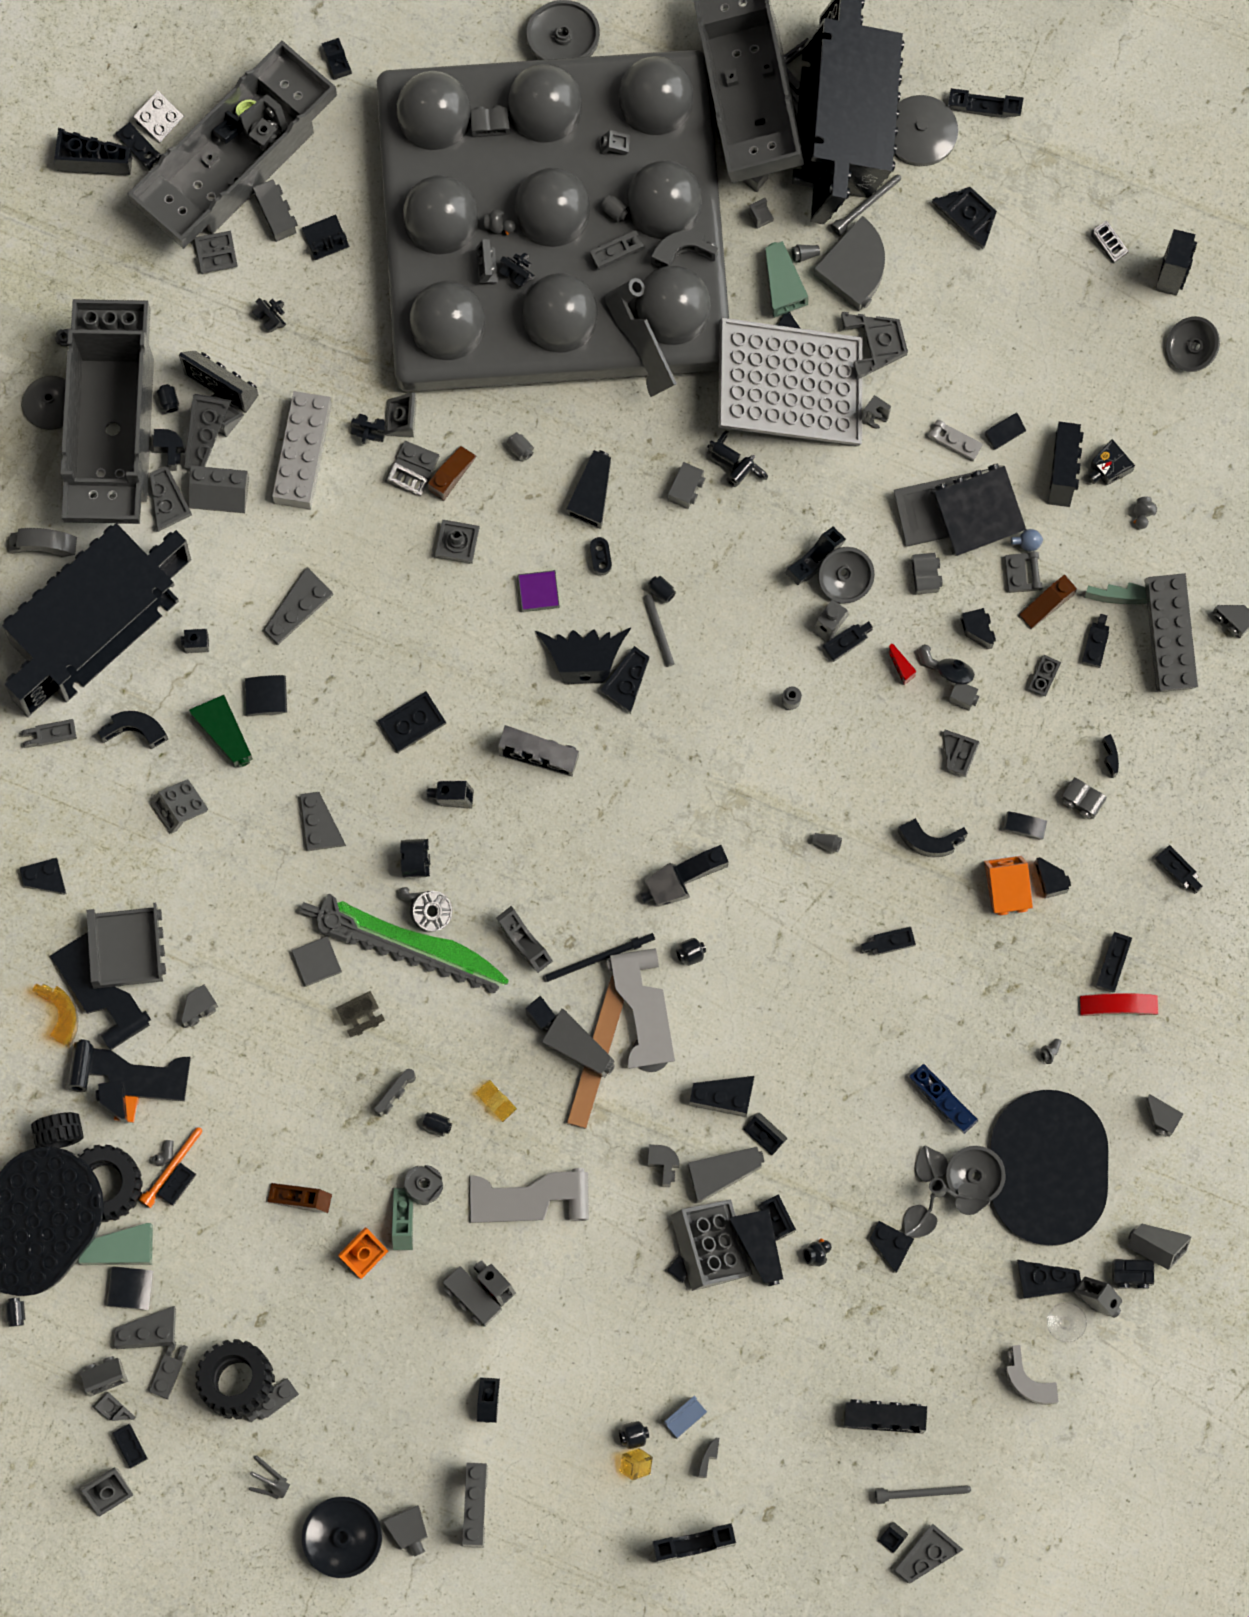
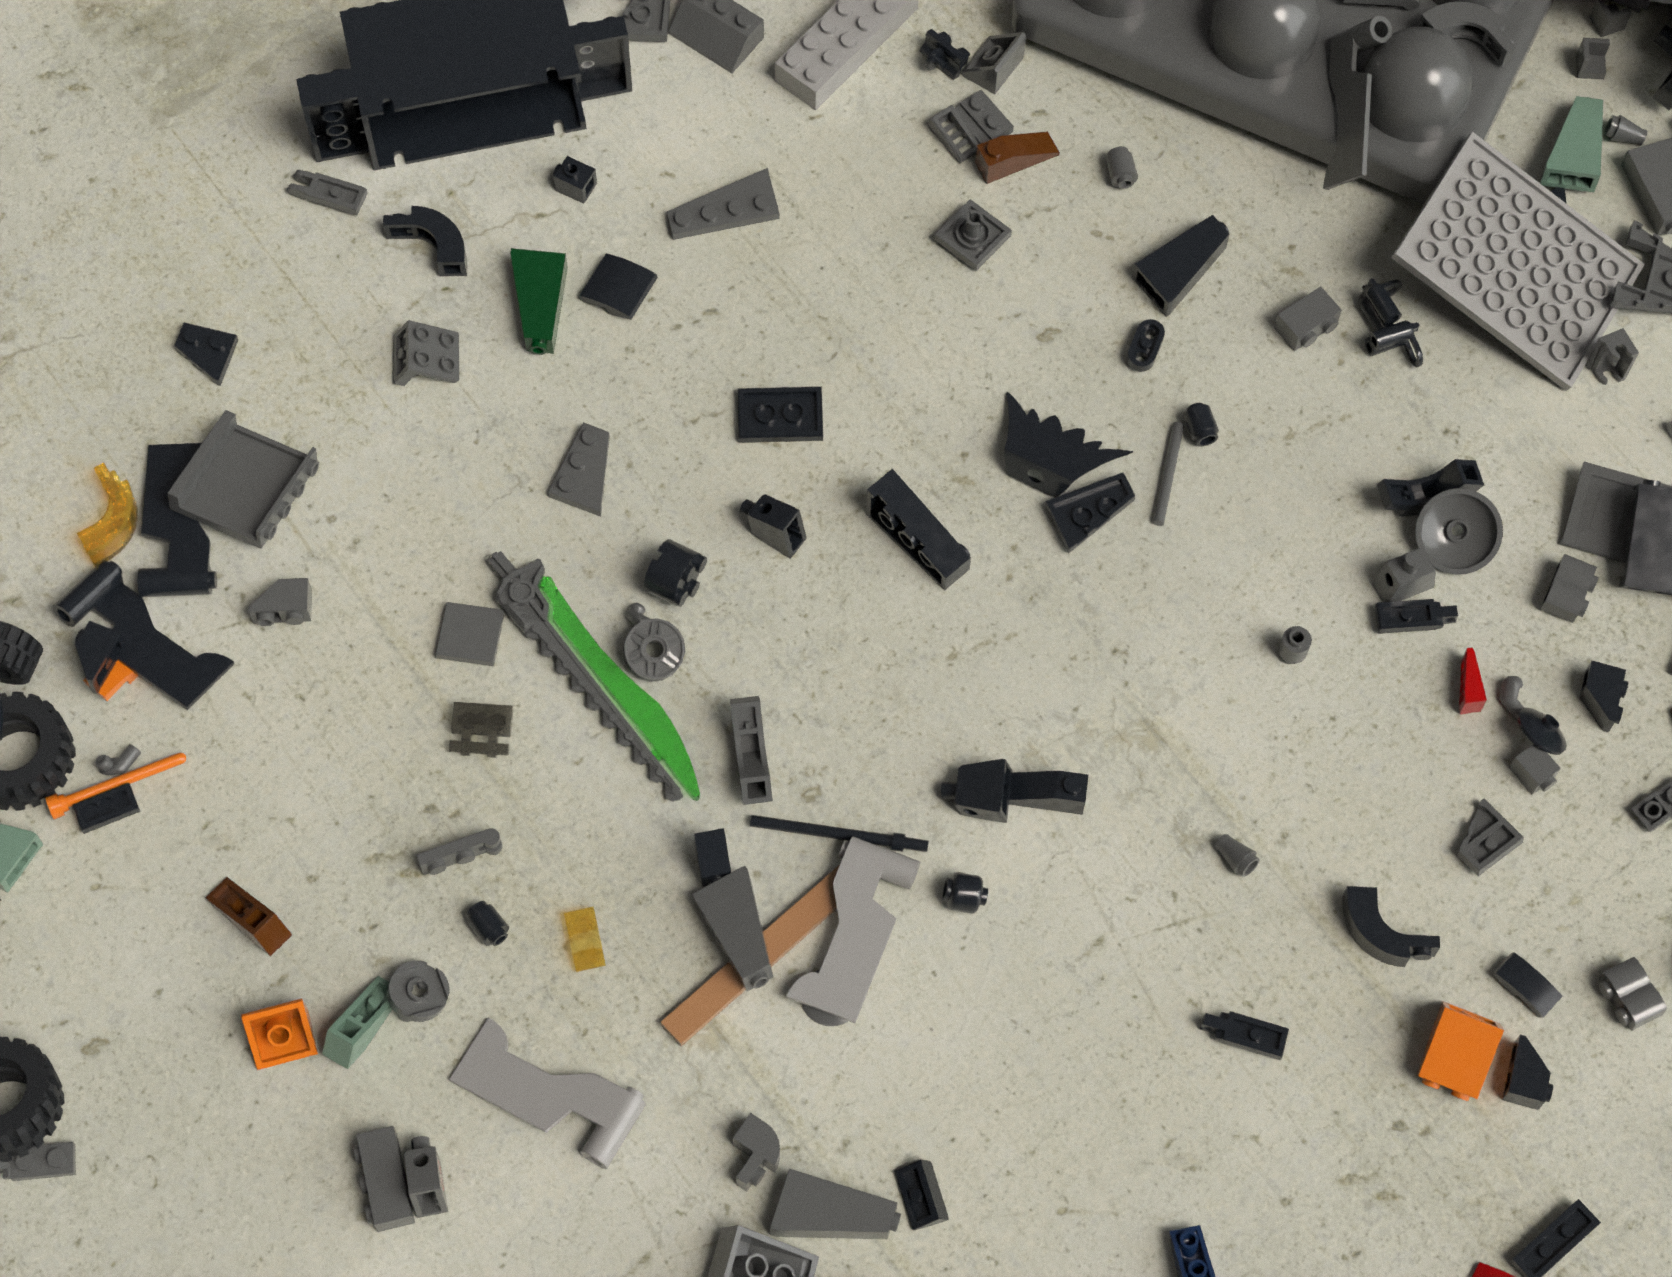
camera: 30 degrees right, 10 degrees down
(538, 591) = (1040, 346): dark purple tile -> none
(723, 1095) = (894, 1108): black wedge -> none

